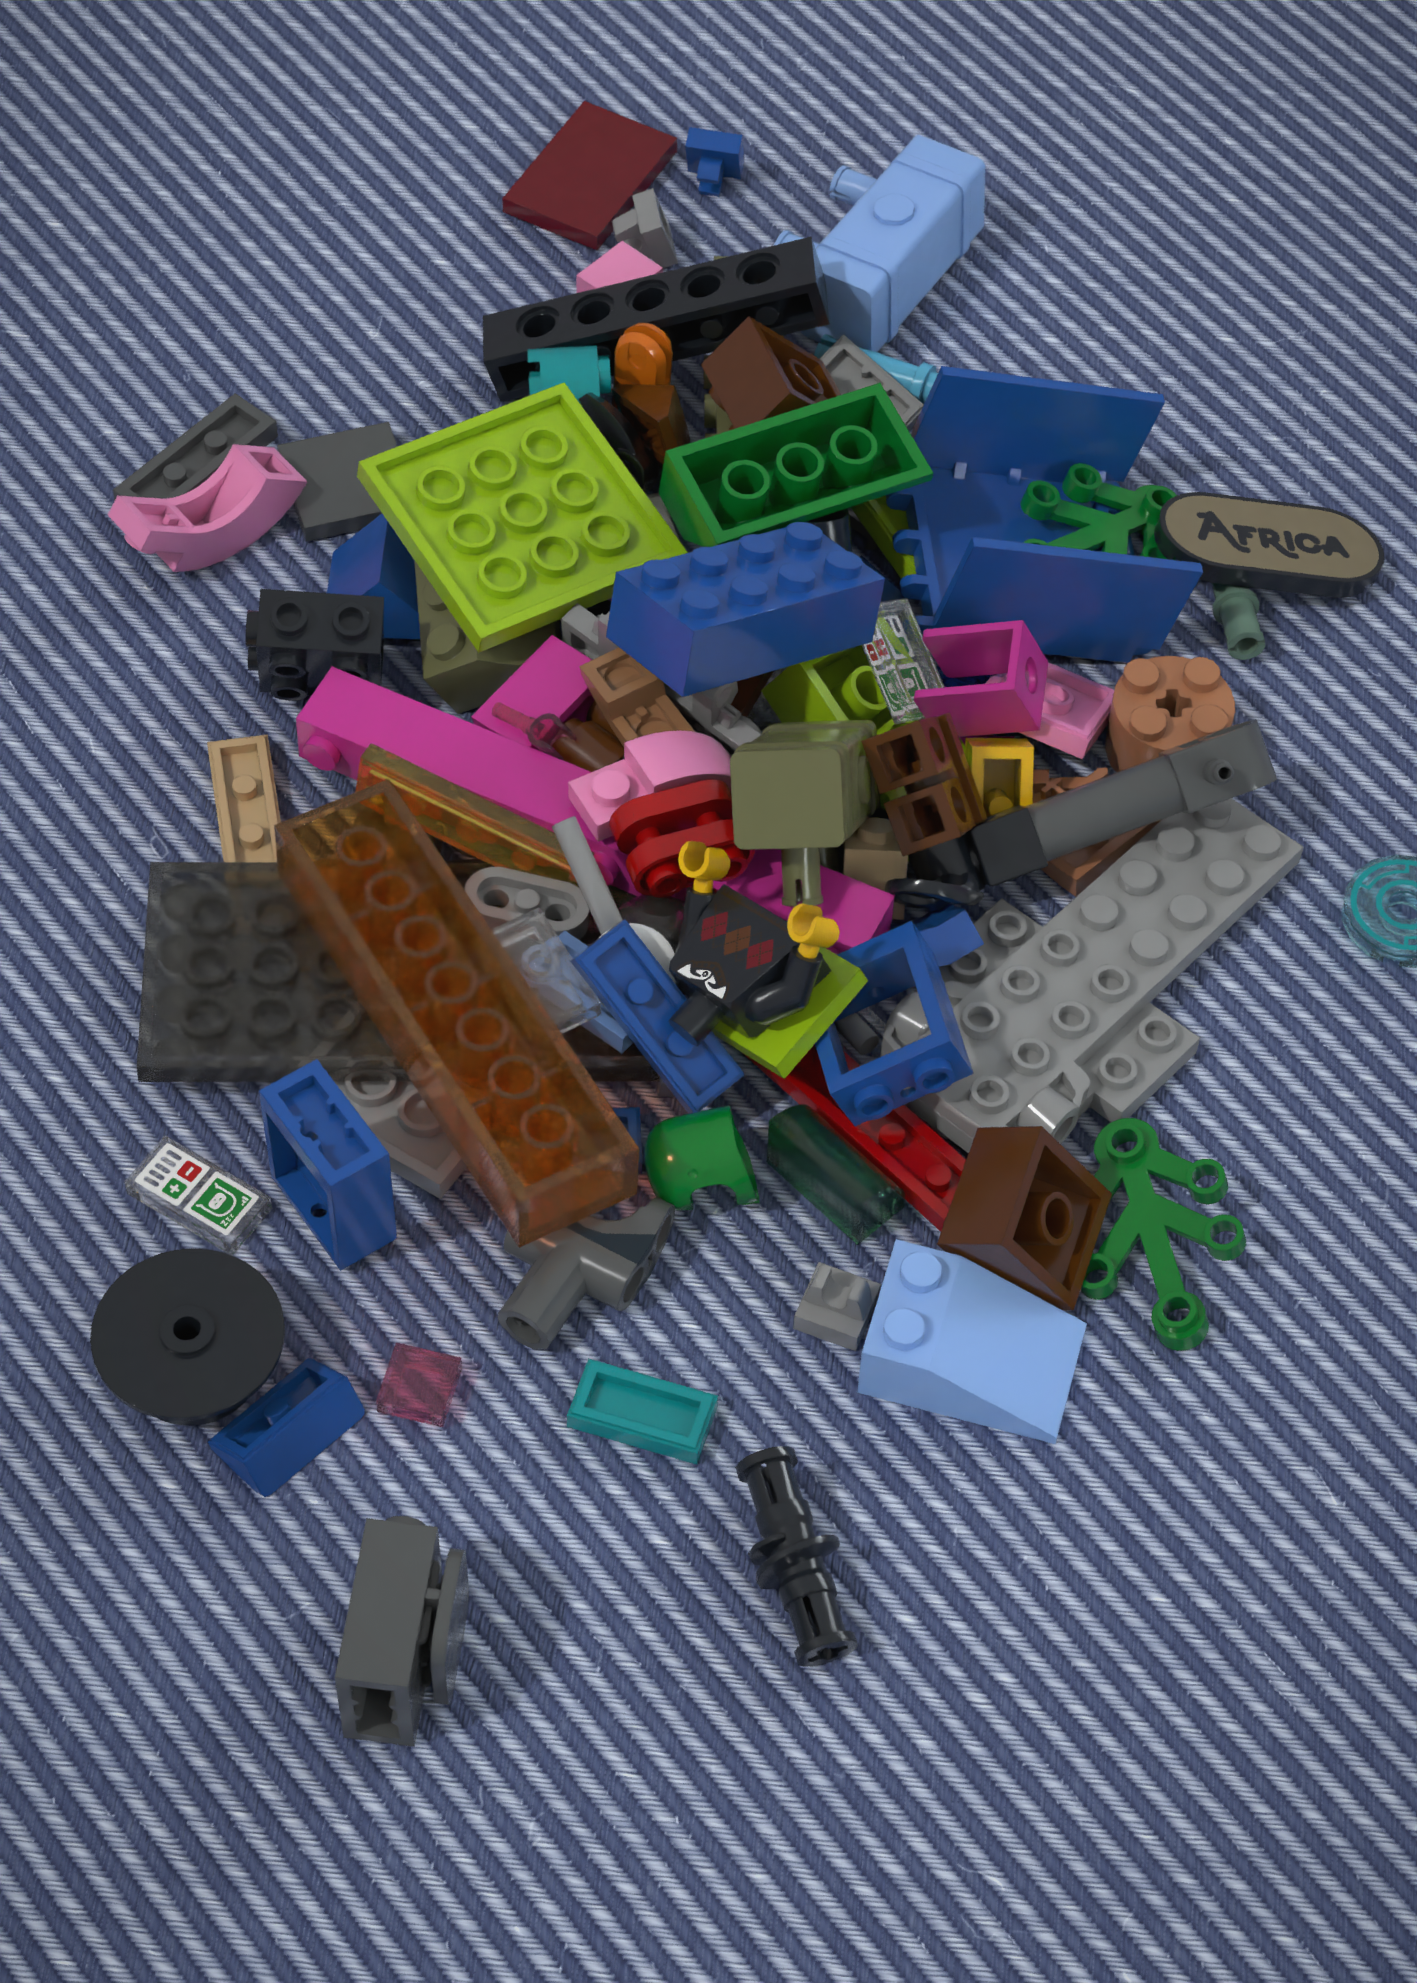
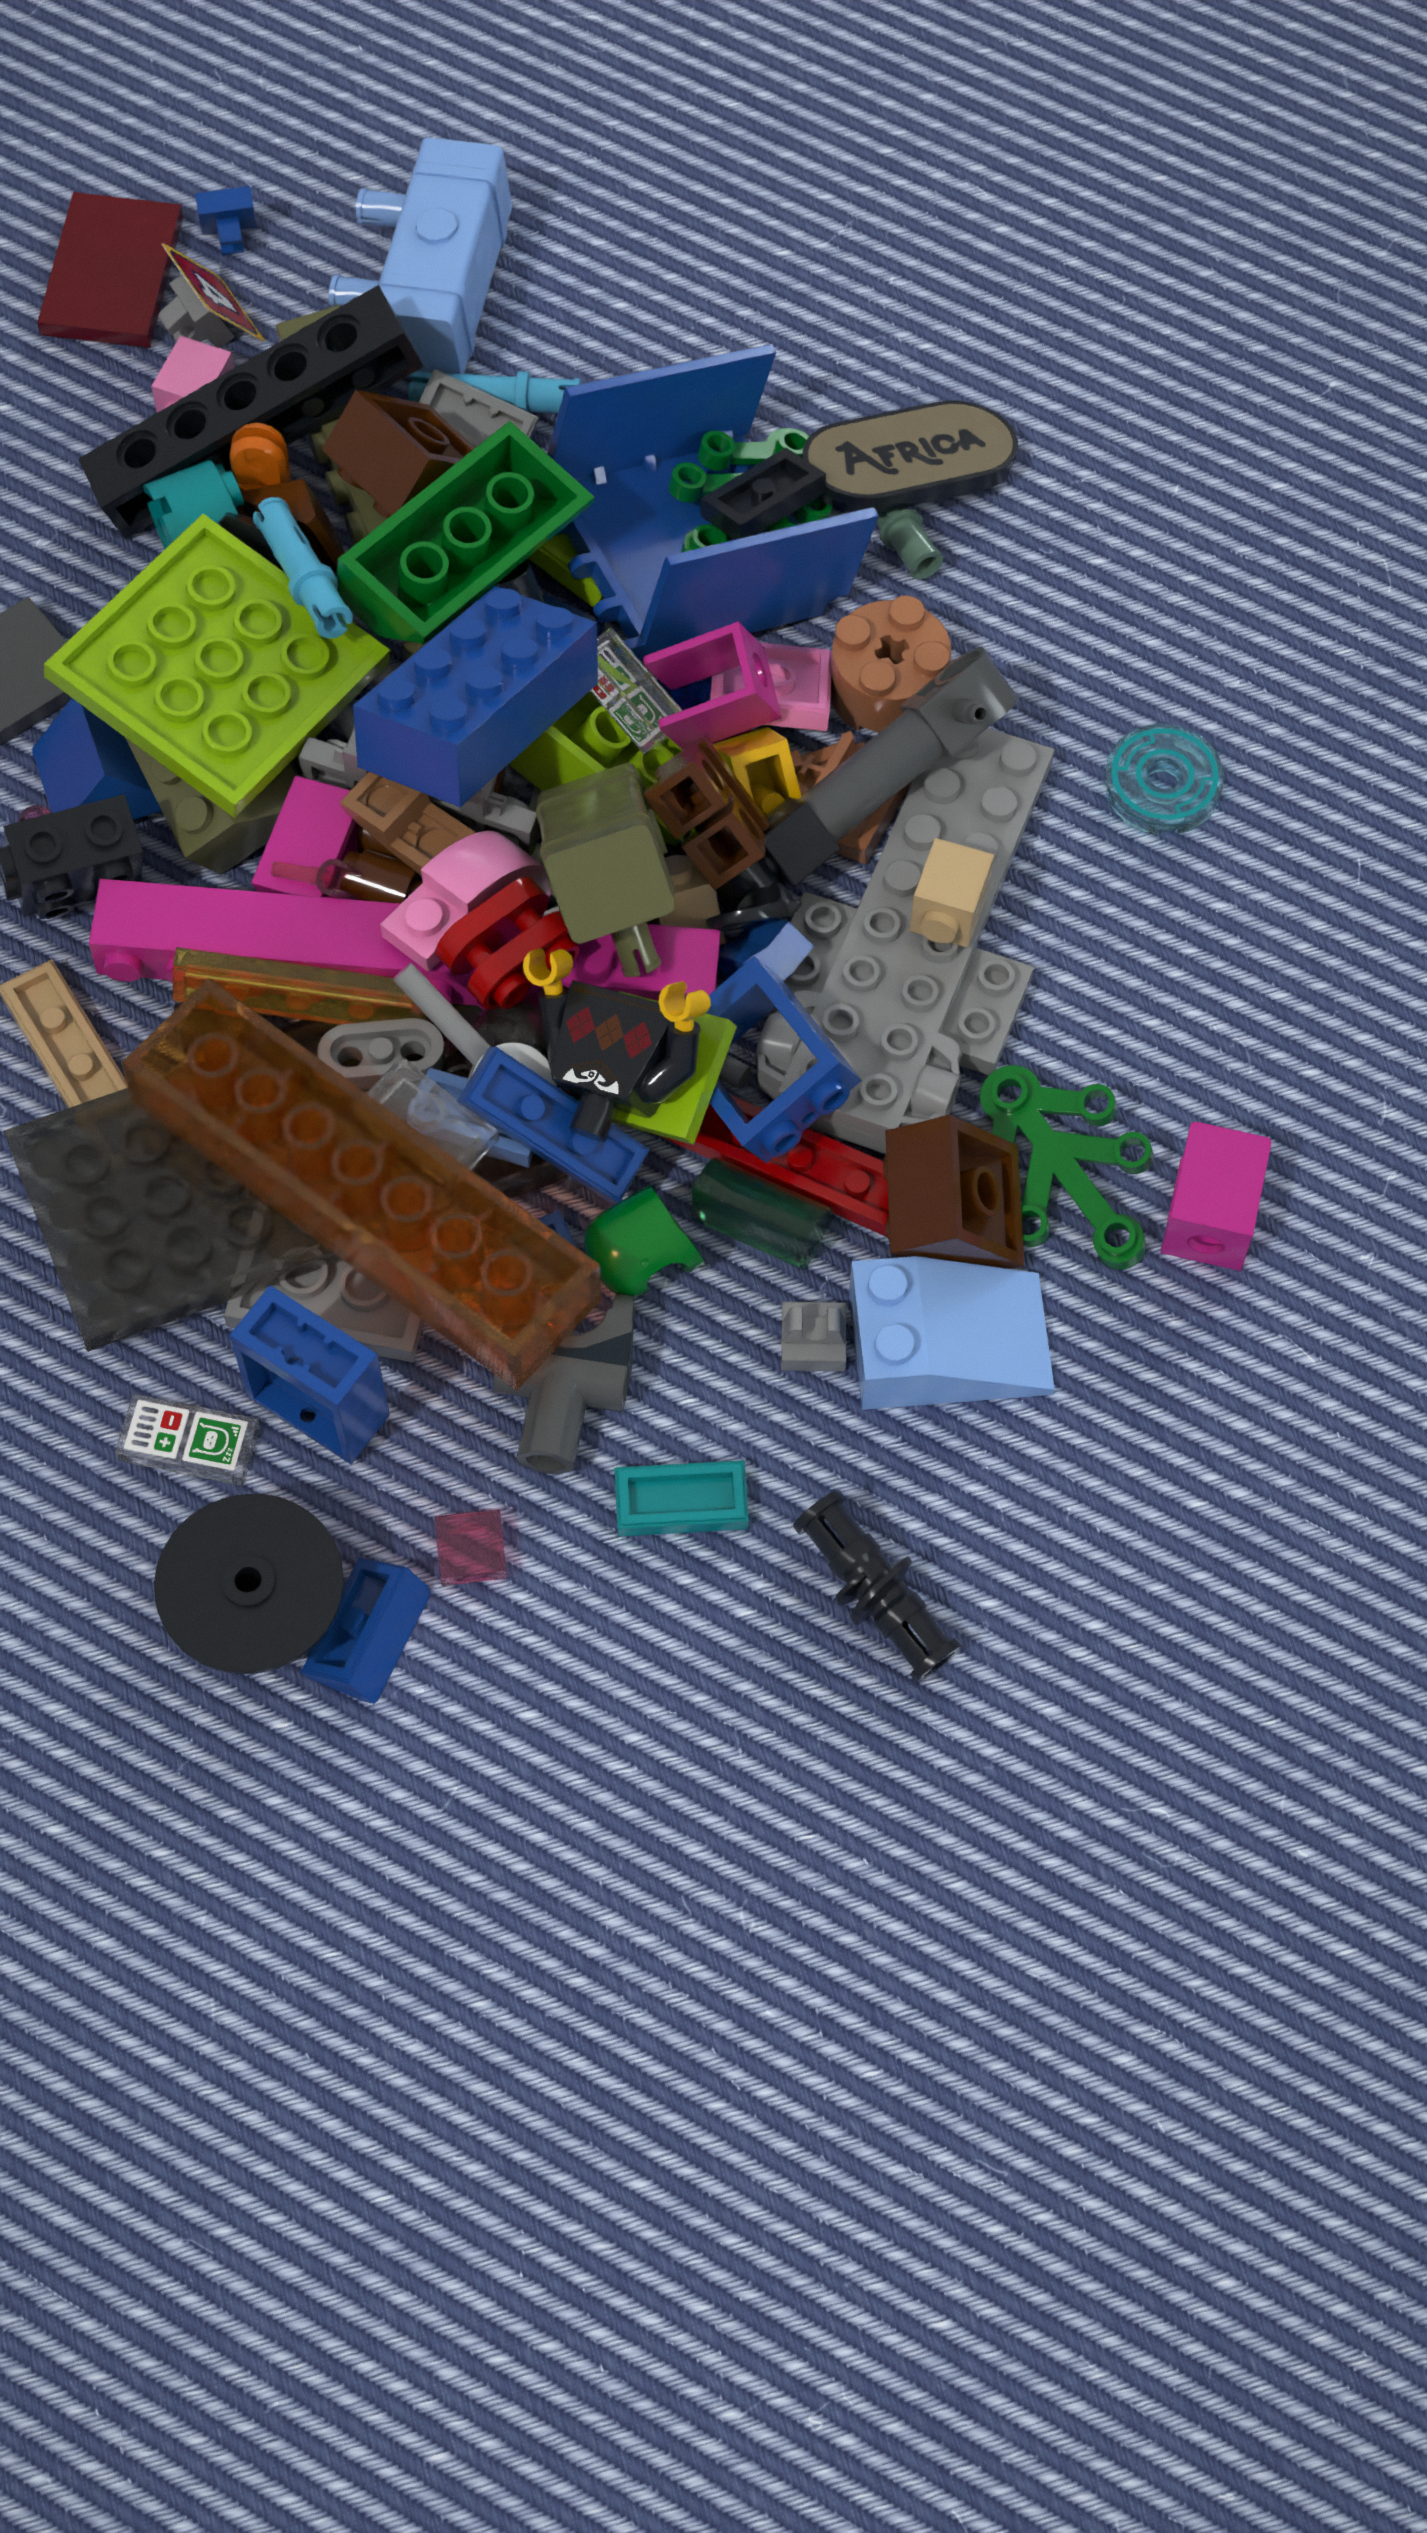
camera: 20 degrees left, 10 degrees up
(400, 1630) = (563, 1785): dark grey brick -> none
(635, 466) = (309, 580): none -> medium azure pin
(669, 214) = (213, 292): none -> sticker
(1110, 527) = (763, 495): none -> black plate
(1136, 934) = (951, 893): none -> tan brick
(1292, 1306) = (1216, 1196): none -> dark pink piece

